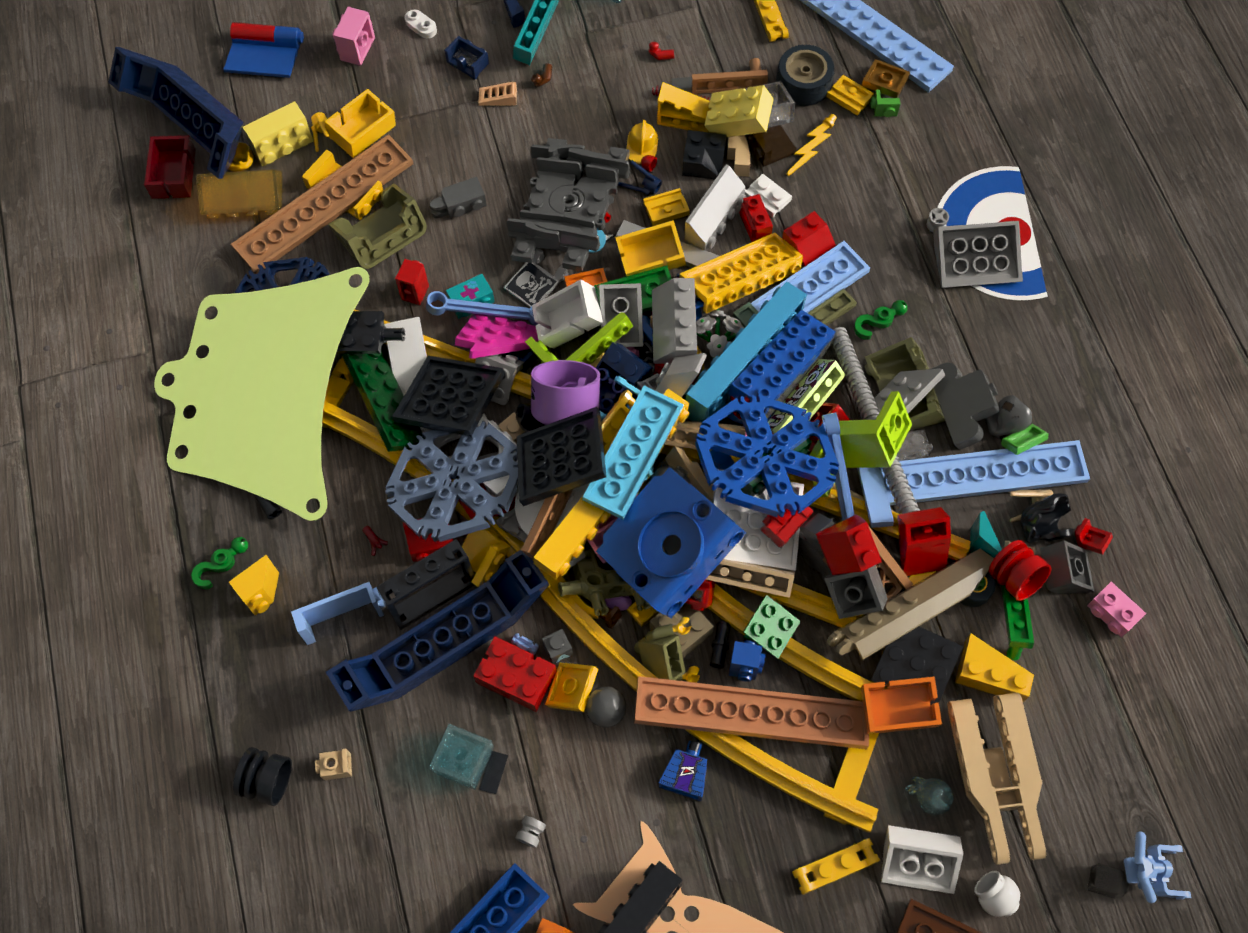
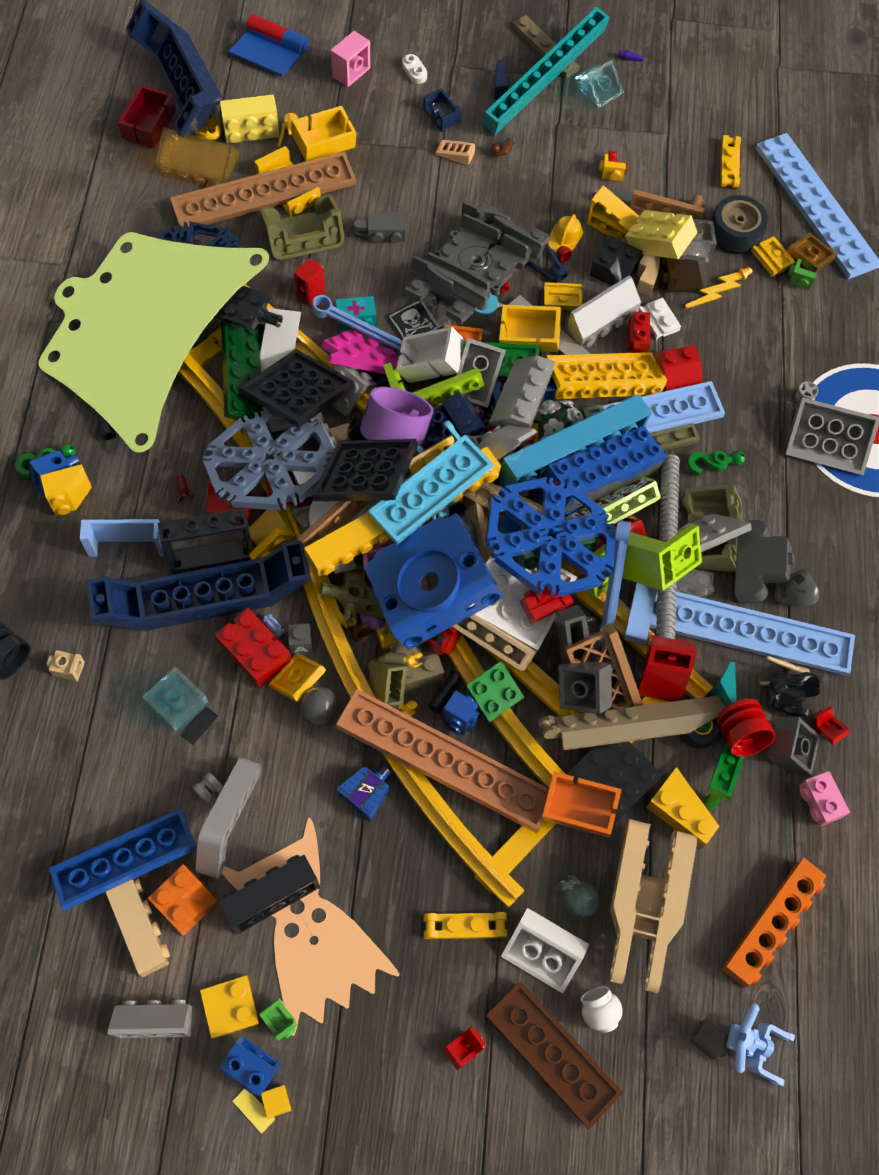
camera: 15 degrees right, 0 degrees up
(229, 568) = (50, 463): none -> blue torso
(563, 854) = (223, 816): none -> light grey beam
(659, 62) = (612, 170): none -> yellow bracket
(849, 546) = (590, 643): red slope -> none
(1025, 439) = (803, 615): bright green tile -> none
(1101, 800) = (736, 965): none -> orange brick

